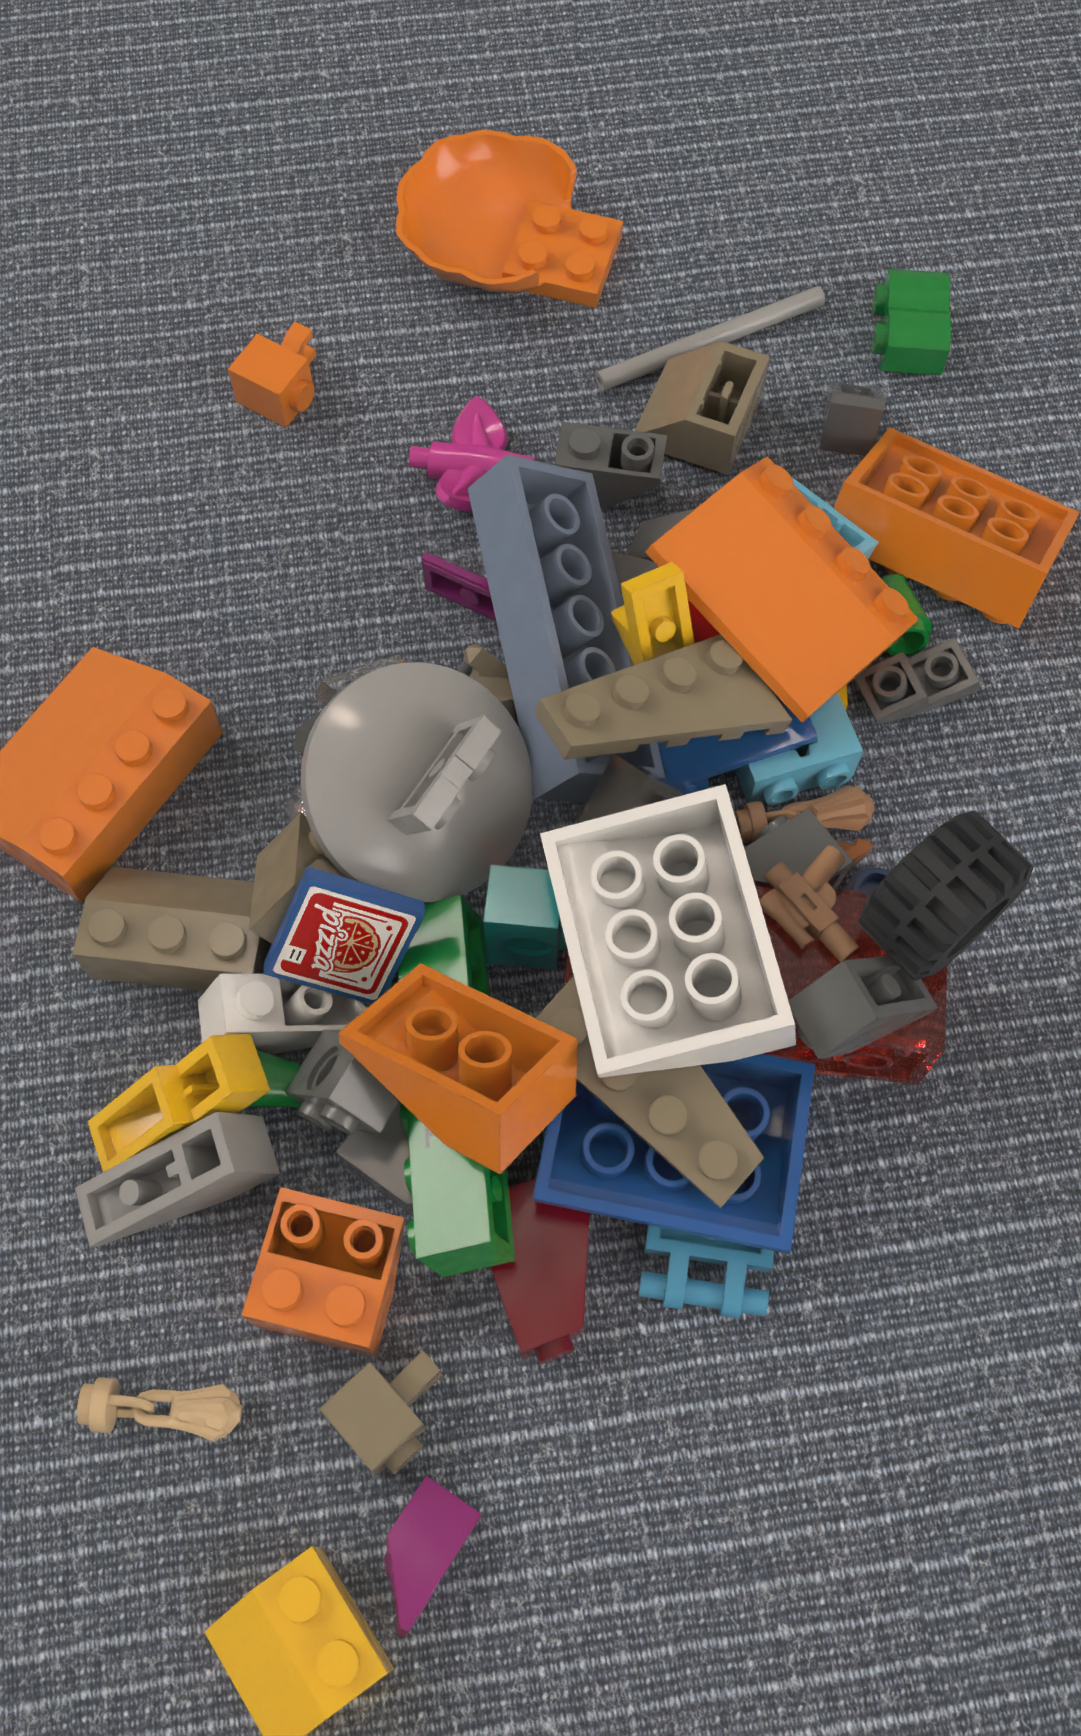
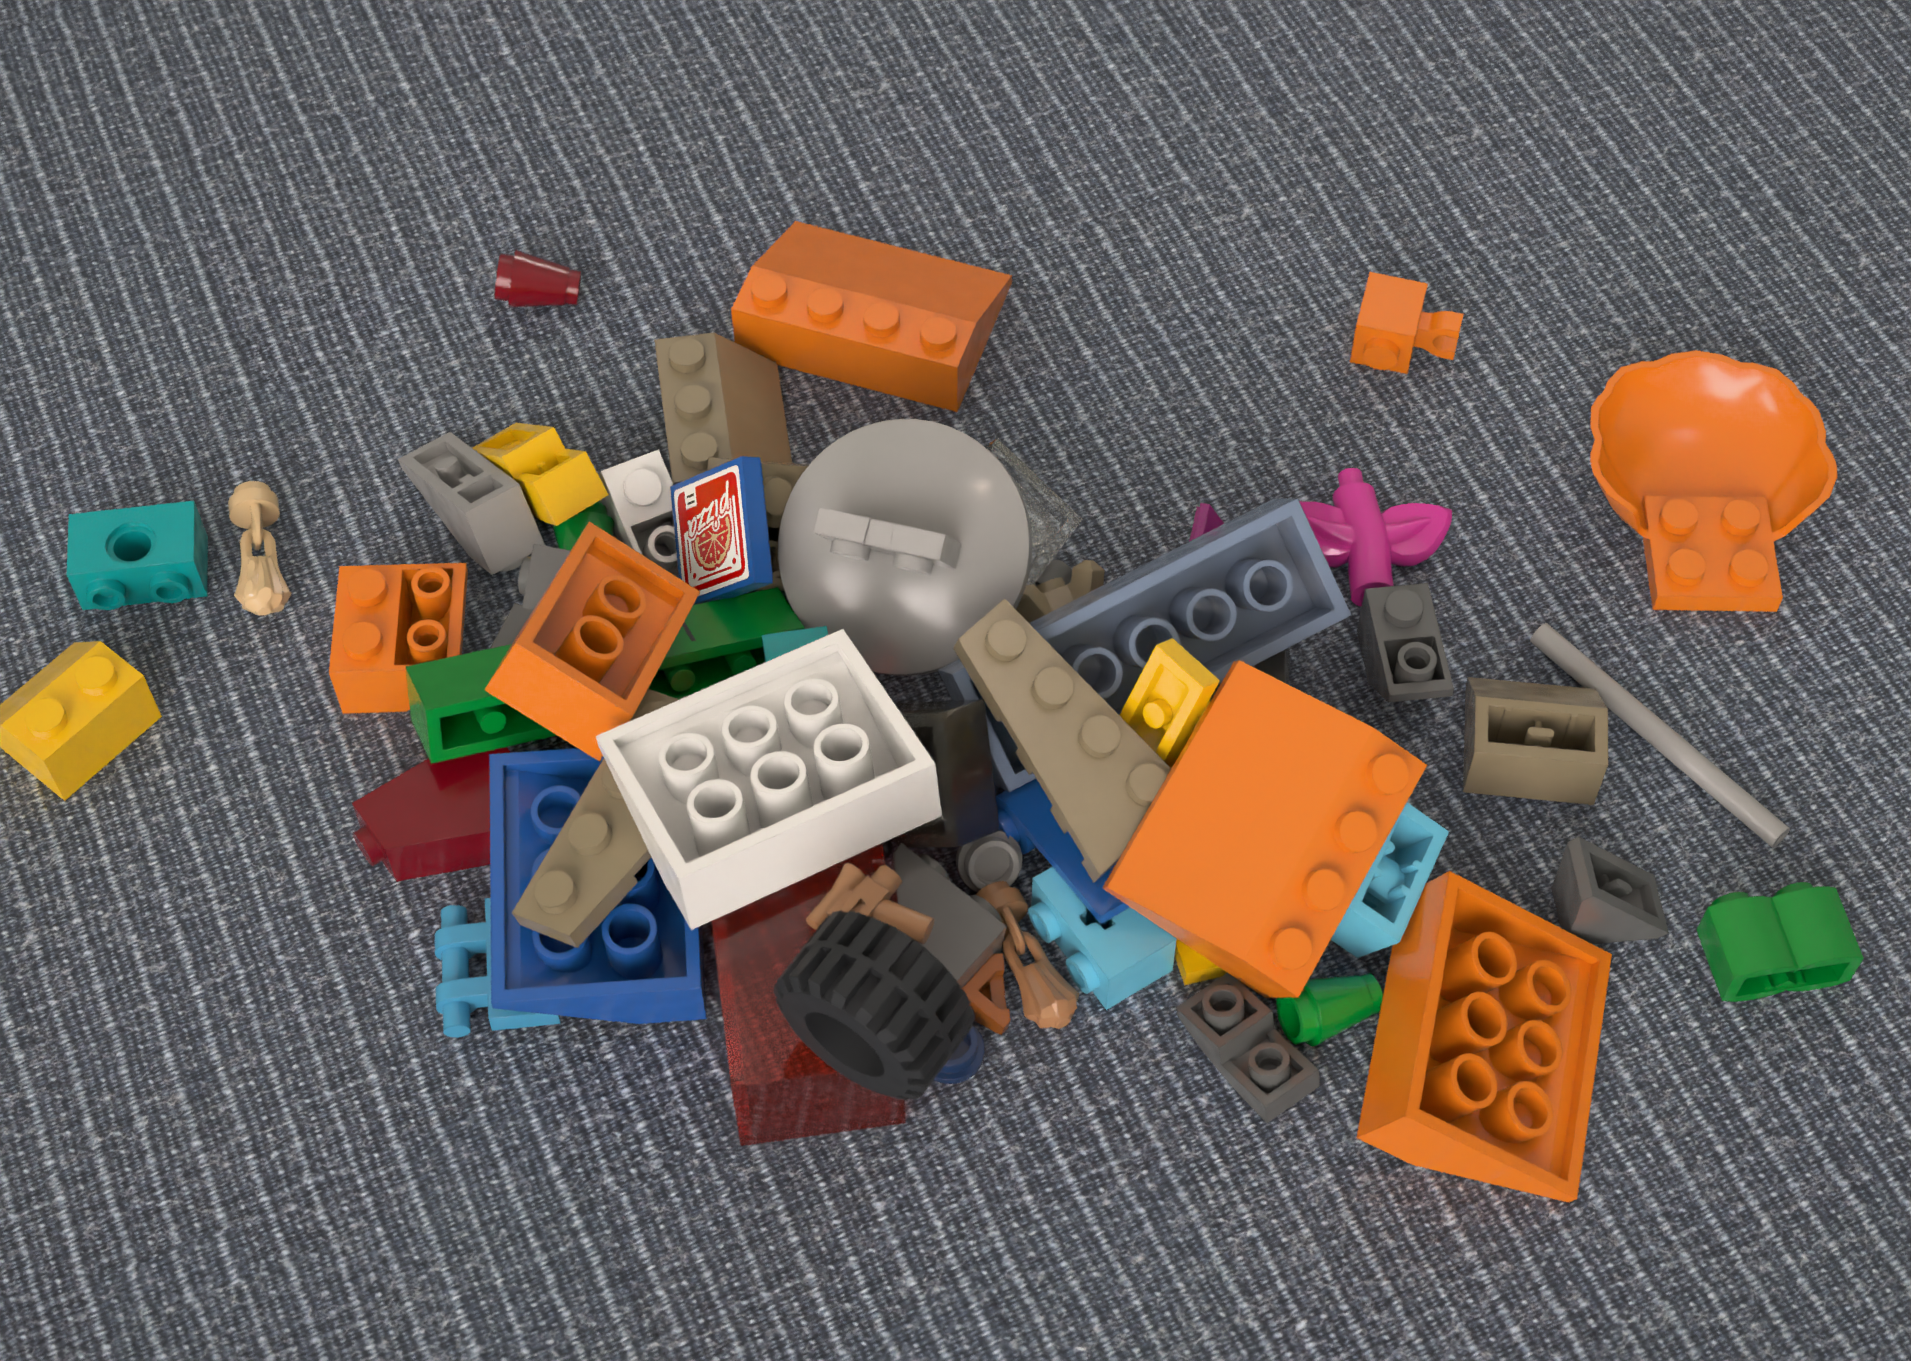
camera: 75 degrees right, 10 degrees down
(98, 1574) = (137, 555): none -> teal brick
(377, 1414) = (279, 716): dark tan brick -> none
(424, 1547) = (168, 785): magenta slope -> none
(858, 1005) = (736, 967): dark grey slope -> none

